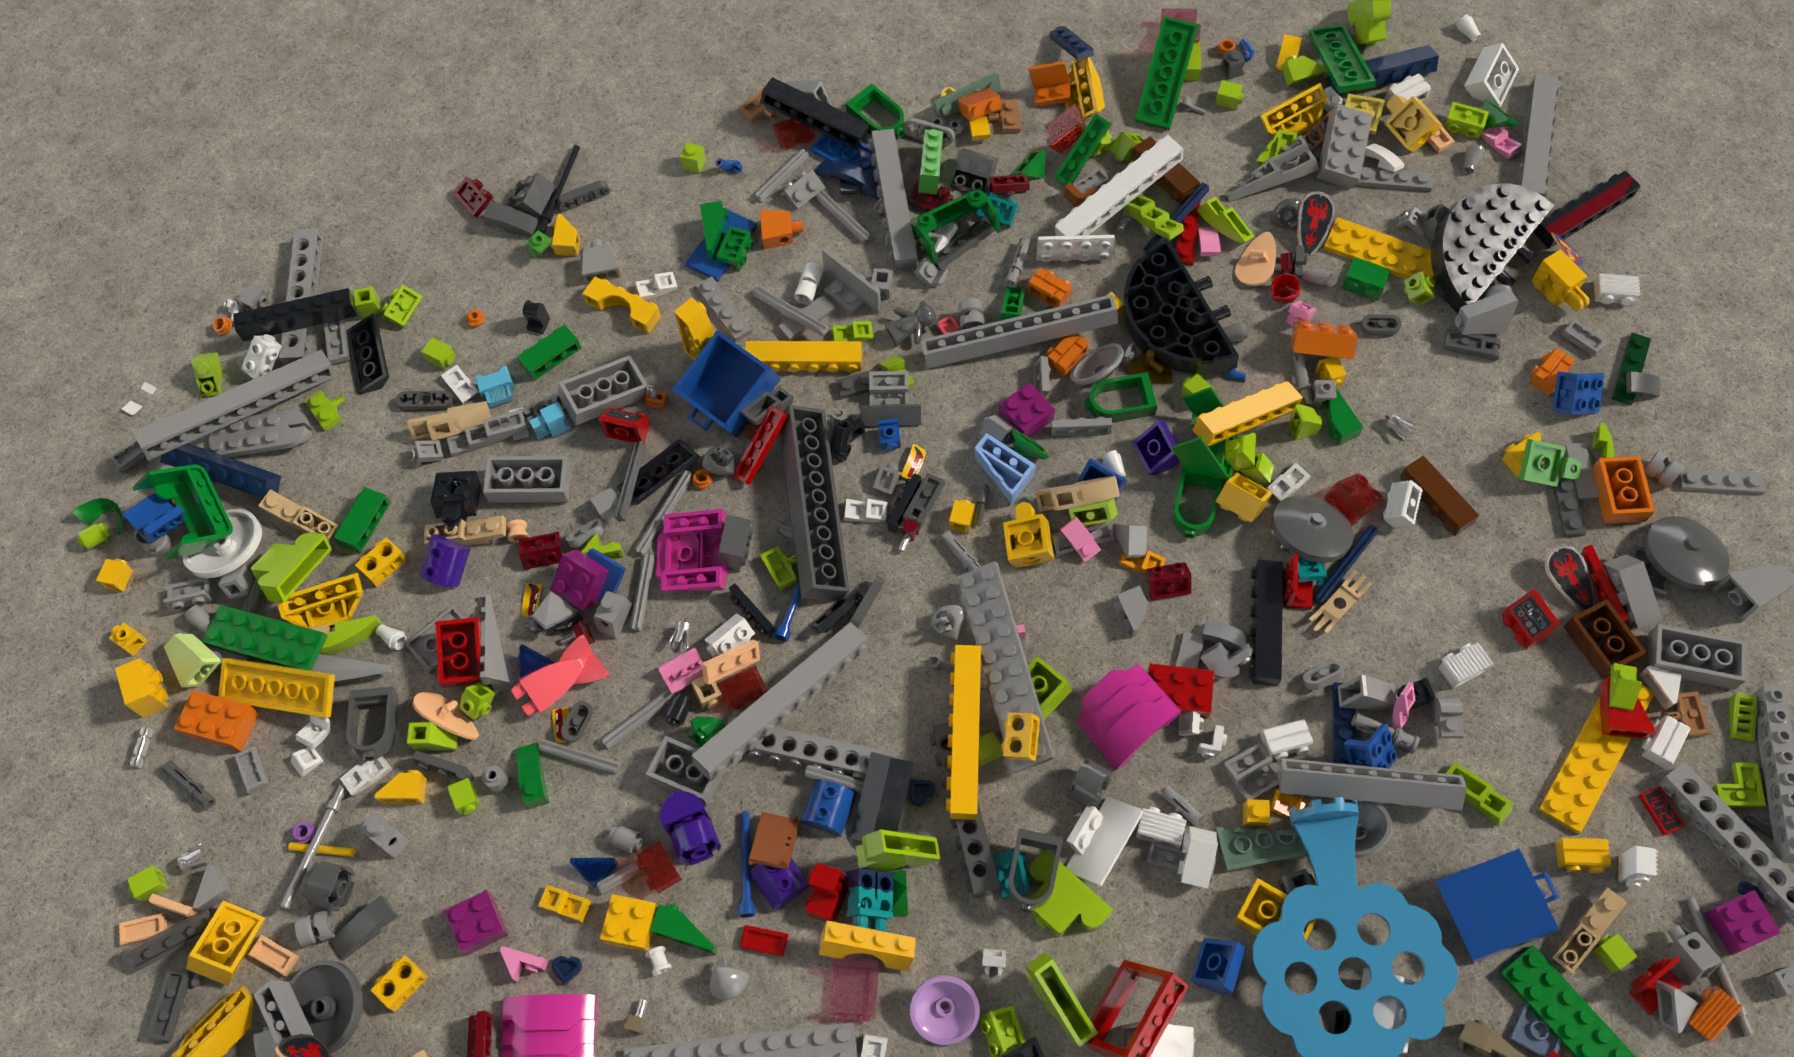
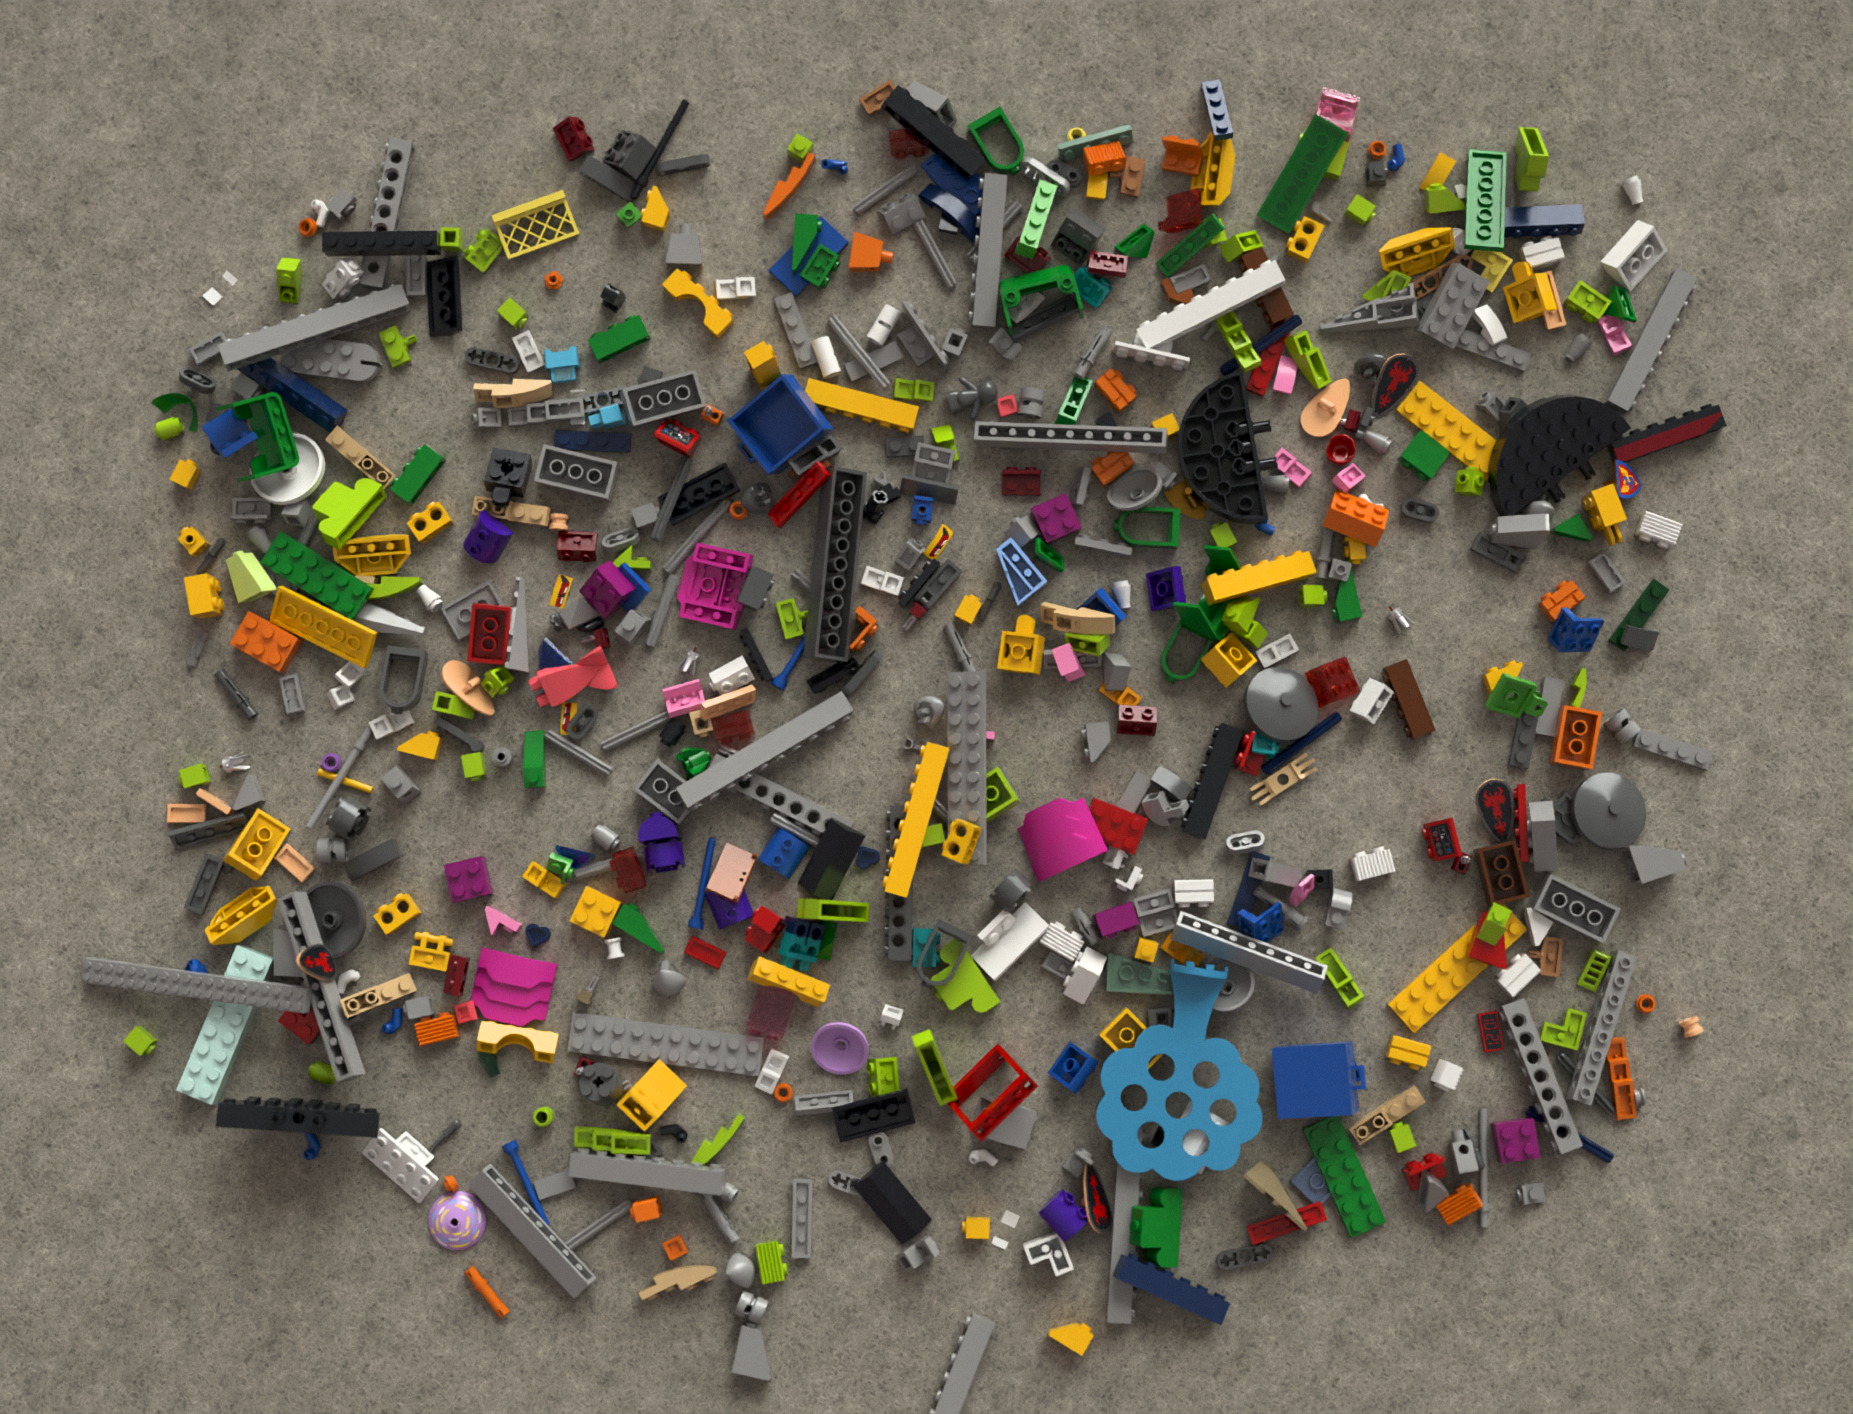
camera: 15 degrees right, 20 degrees up
(118, 483) = (197, 380): none -> dark grey plate
(158, 634) = (210, 557): none -> dark grey piece
(437, 262) = (525, 211): none -> light yellow fence
(445, 1025) = (428, 957): none -> yellow plate
(556, 446) = (593, 441): none -> dark blue plate
(580, 882) = (560, 865): none -> bright green bracket
(687, 193) = (784, 191): none -> orange slope
(758, 322) = (825, 357): none -> white pin
(860, 548) = (864, 619): none -> orange bracket
(981, 388) = (1021, 482): none -> dark red bracket
(1186, 127) = (1308, 241): none -> yellow brick
(1213, 786) = (1116, 919): none -> magenta brick
(1239, 314) = (1292, 468): none -> bright pink slope
(1536, 306) = (1574, 529): none -> green slope
(1558, 638) = (1464, 860): none -> dark red piece

